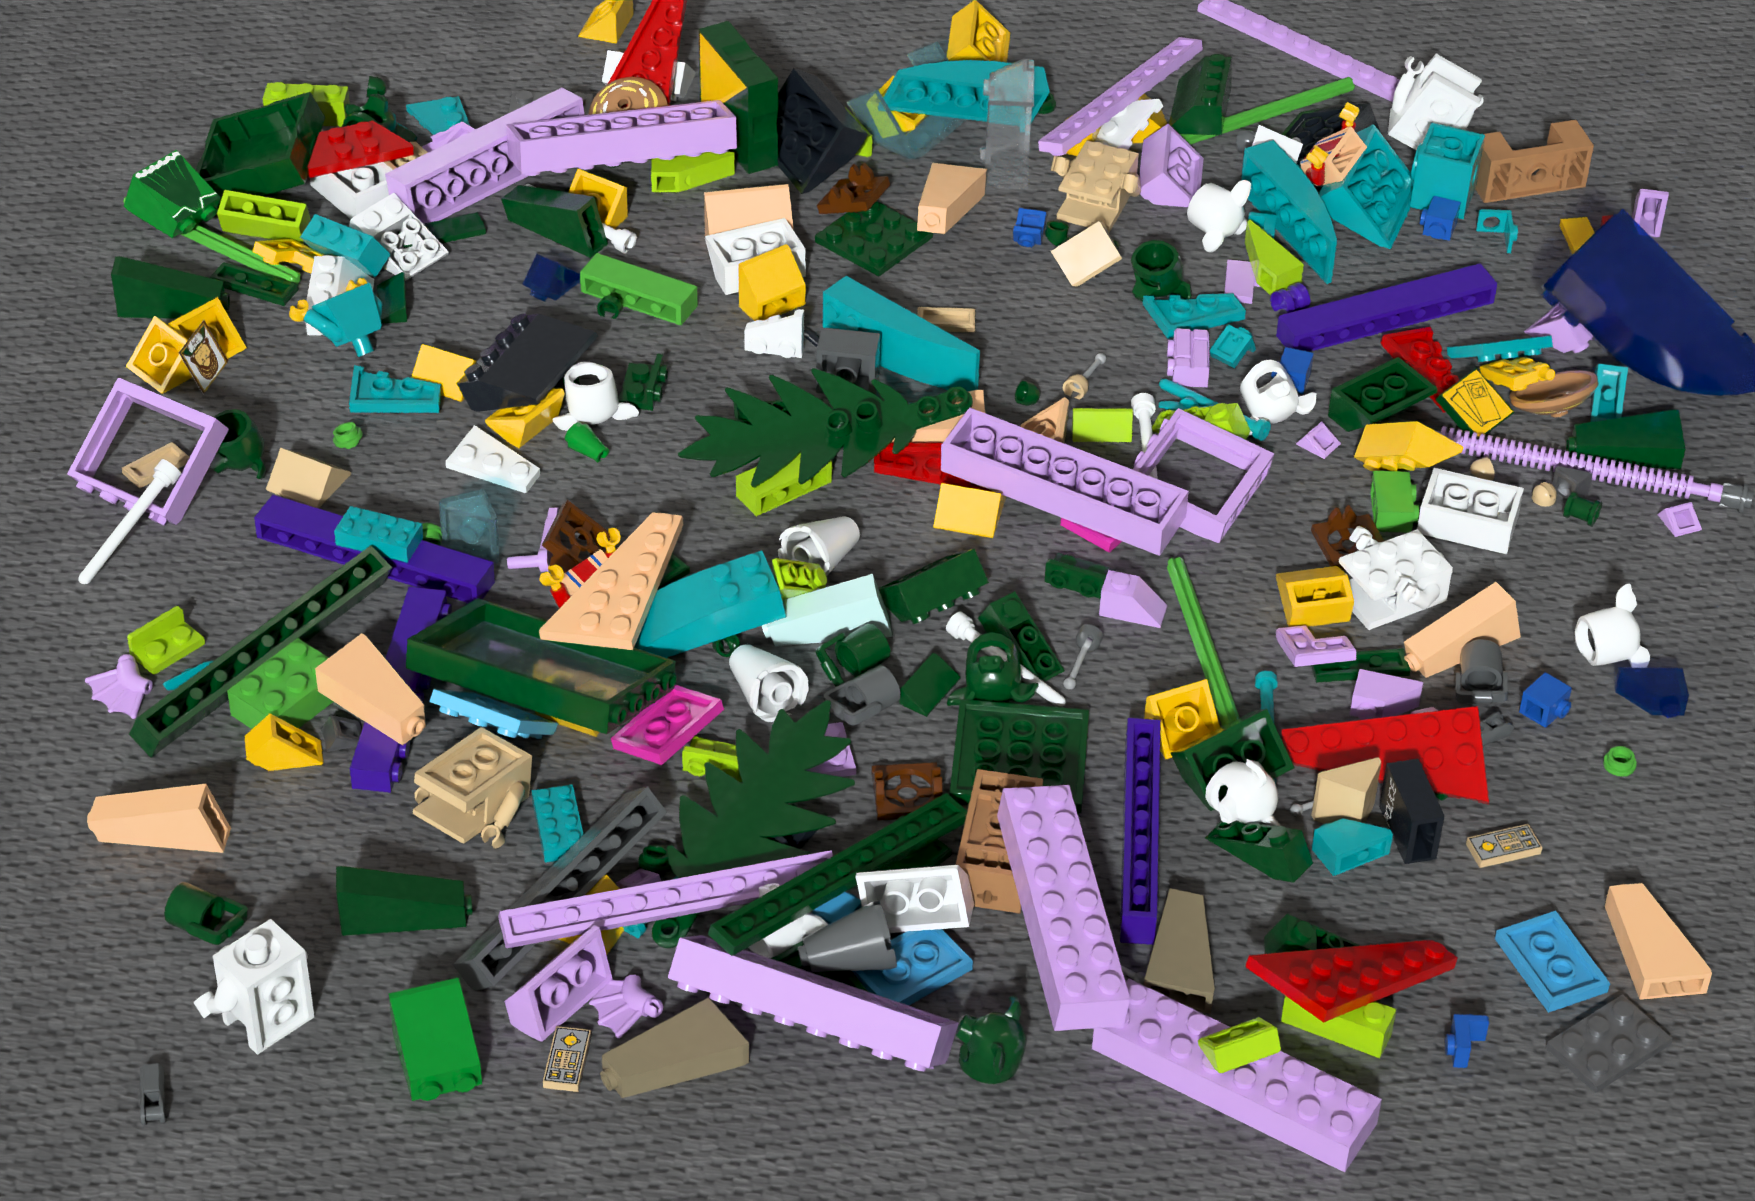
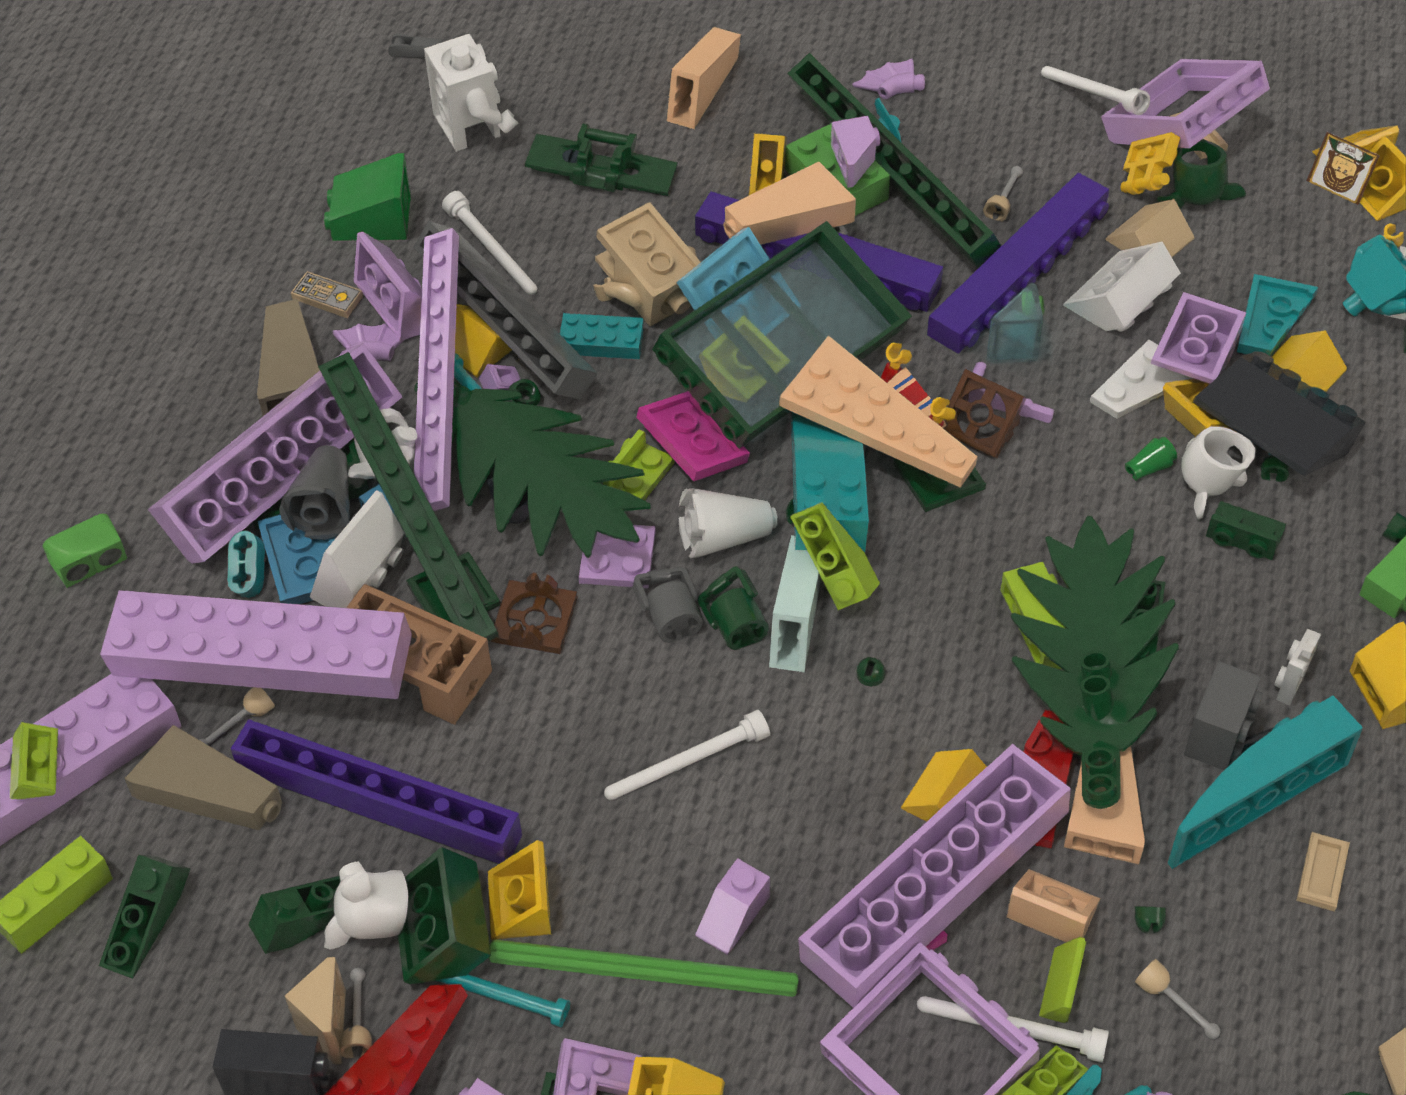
camera: 110 degrees right, 10 degrees up
(164, 641) = (939, 108): lime bracket -> none
(202, 911) = (587, 87): dark green piece -> none
(225, 467) = (1149, 156): none -> yellow plate
(289, 649) = (854, 147): none -> lavender slope
(296, 578) = (1001, 202): none -> tan hinge
(313, 895) = (598, 171): none -> dark green piece
(347, 435) = (1207, 270): bright green plate -> none
(385, 482) = (1125, 287): none -> white slope
(387, 534) = (1017, 248): teal piece -> none
(398, 902) = (538, 201): dark green slope -> none
(414, 977) = (458, 206): none -> white piece
(453, 418) = (1199, 338): none -> lavender slope
(820, 542) = (912, 619): white cone -> none
(877, 569) = (877, 674): none -> dark green hinge
(928, 685) = (675, 673): dark green slope -> none
(934, 586) = (824, 711): dark green slope -> none
(941, 994) = (246, 564): none -> teal beam
(982, 1121) = (76, 543): none -> bright green piece
(993, 677) = (651, 723): dark green piece -> none
(994, 1044) = (161, 571): dark green piece -> none
(1012, 620) = (715, 772): dark green slope -> none
(1019, 742) = (539, 726): dark green plate -> none
(1076, 575) = (802, 870): dark green bracket -> none
(1085, 645) = (687, 843): hinge -> none
(1350, 844) = (266, 992): teal slope -> none
(1350, 977) = (68, 891): red wing -> none

